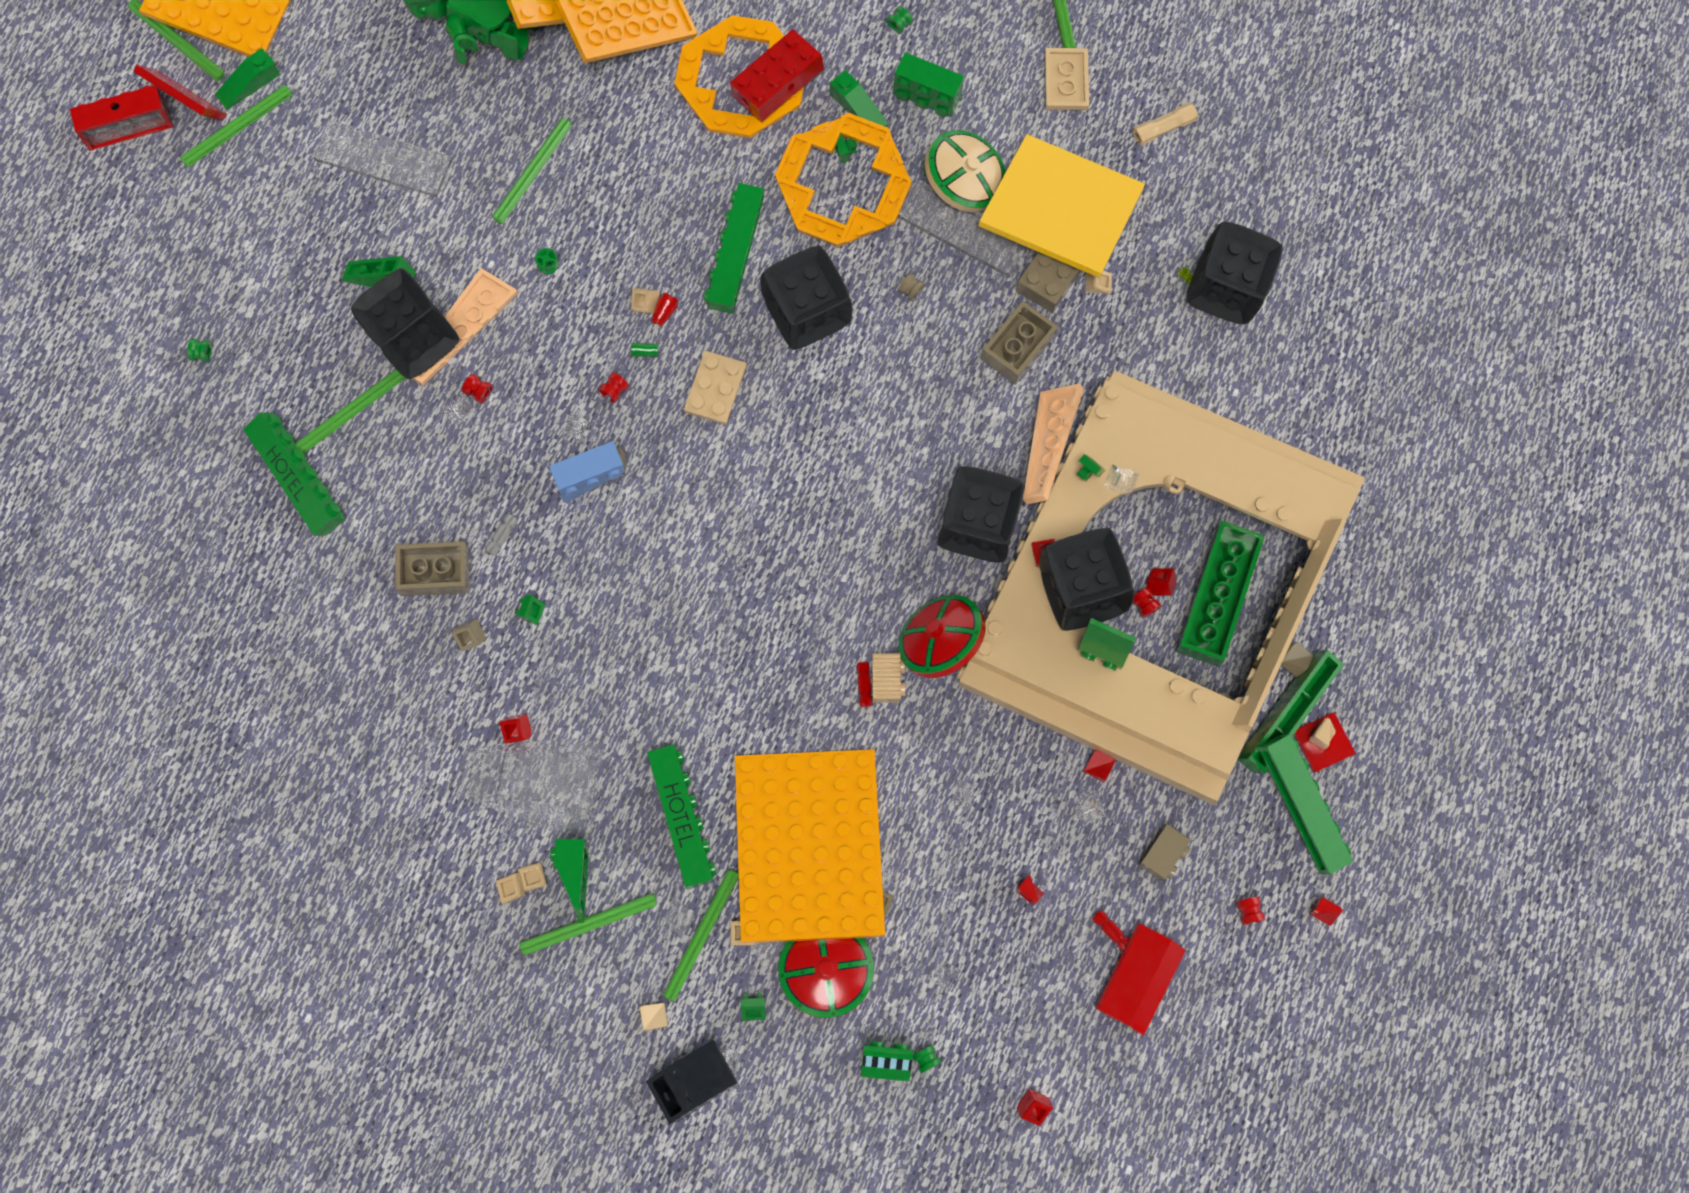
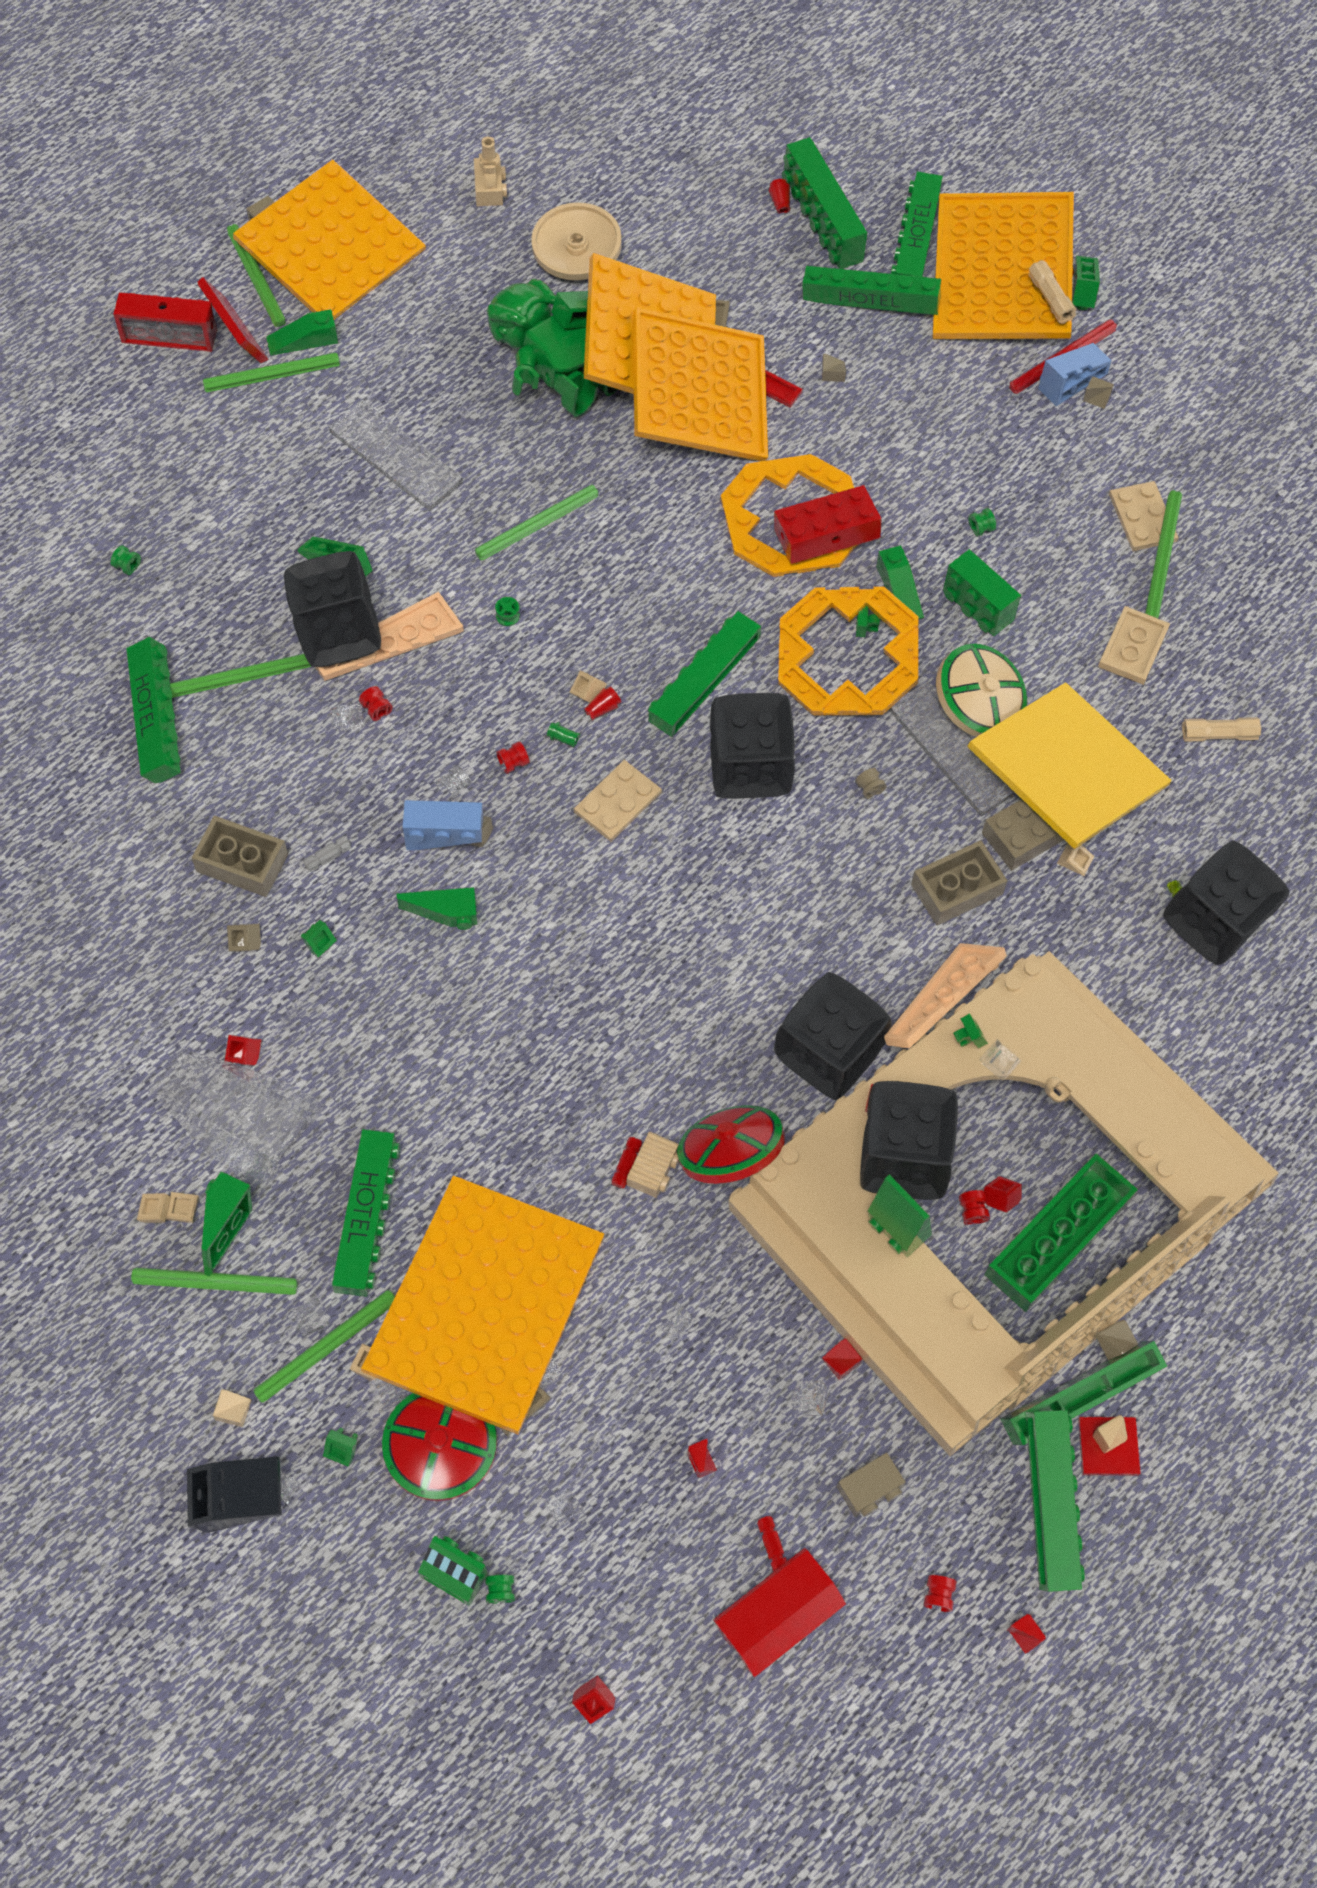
camera: 25 degrees right, 10 degrees down
(621, 538) = (446, 906): none -> green slope

